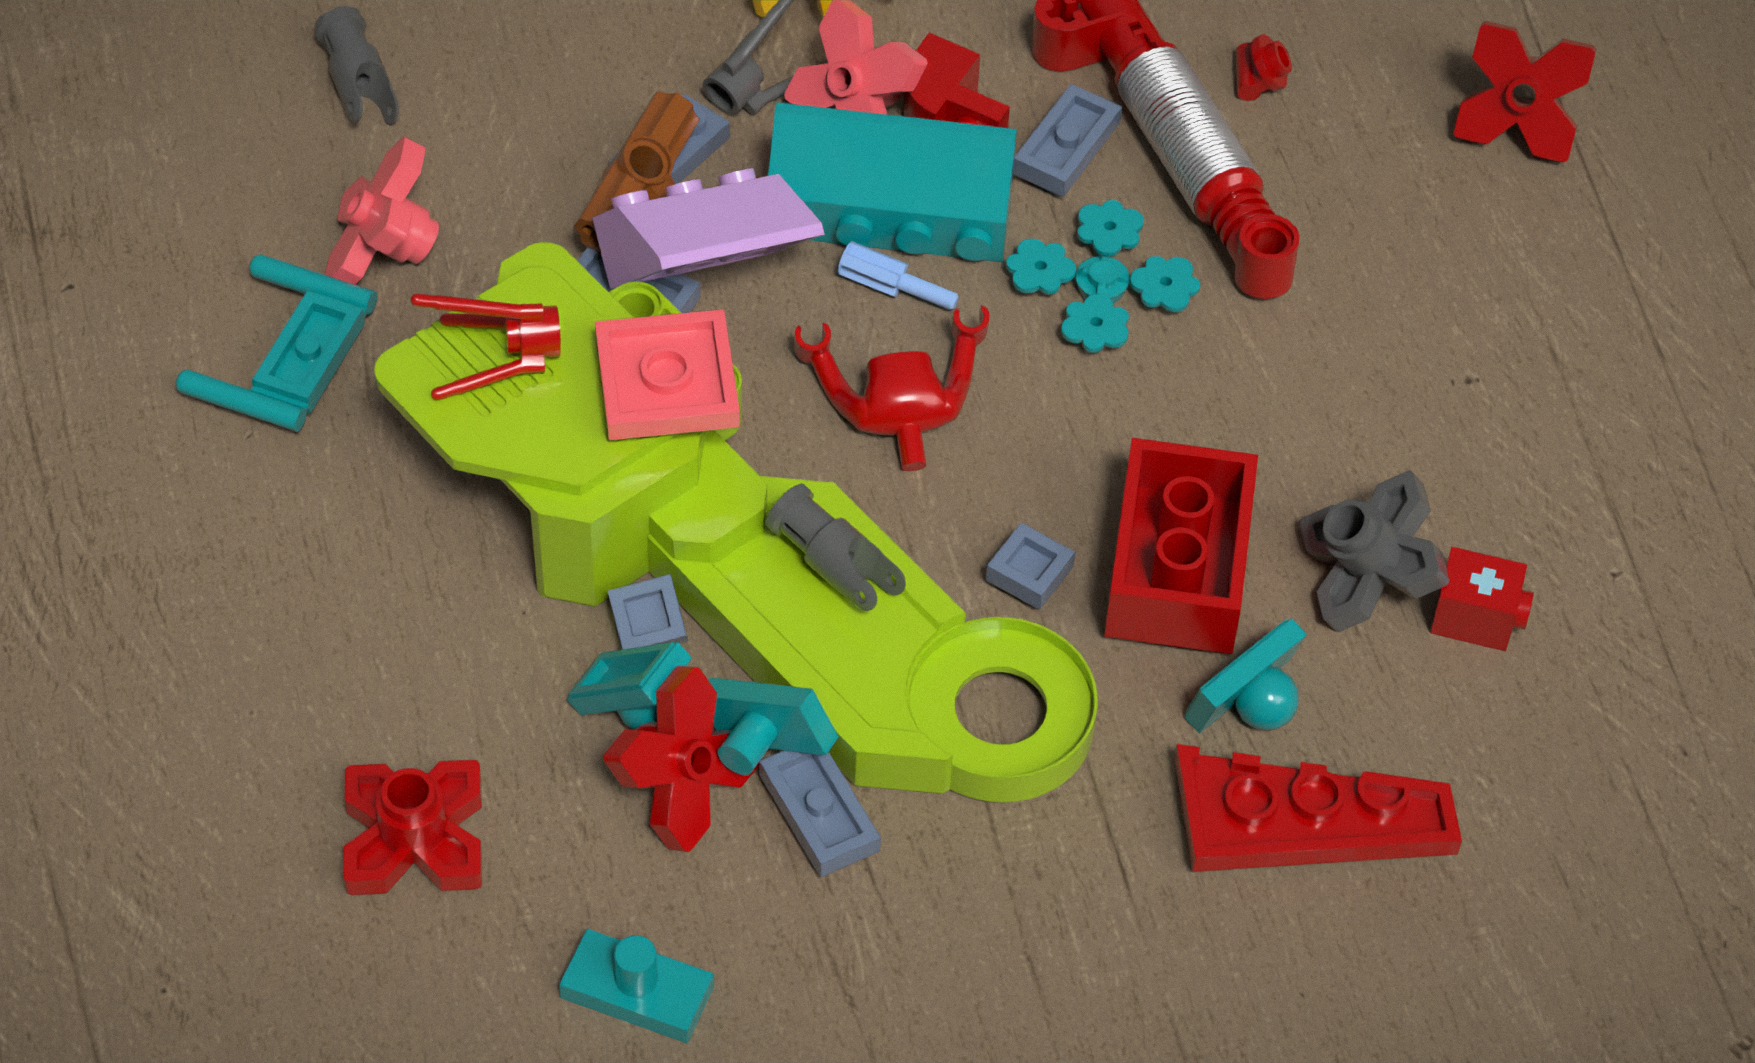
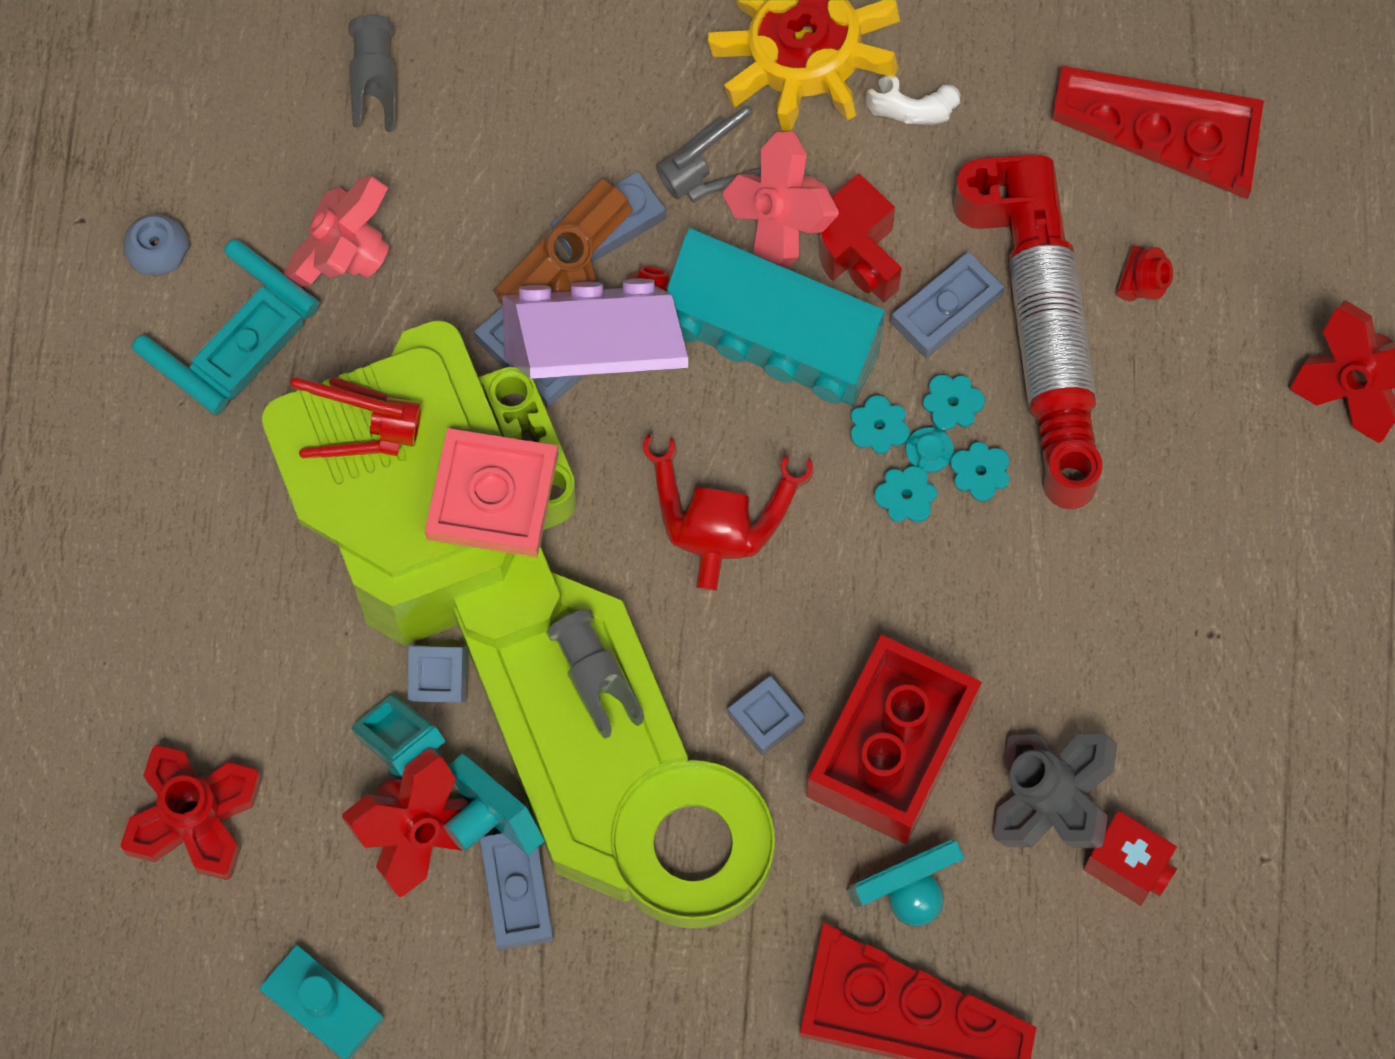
camera: 20 degrees right, 15 degrees up
(166, 285) = (160, 258): none -> sand blue plate
(890, 276) = (750, 398): light blue axle -> none

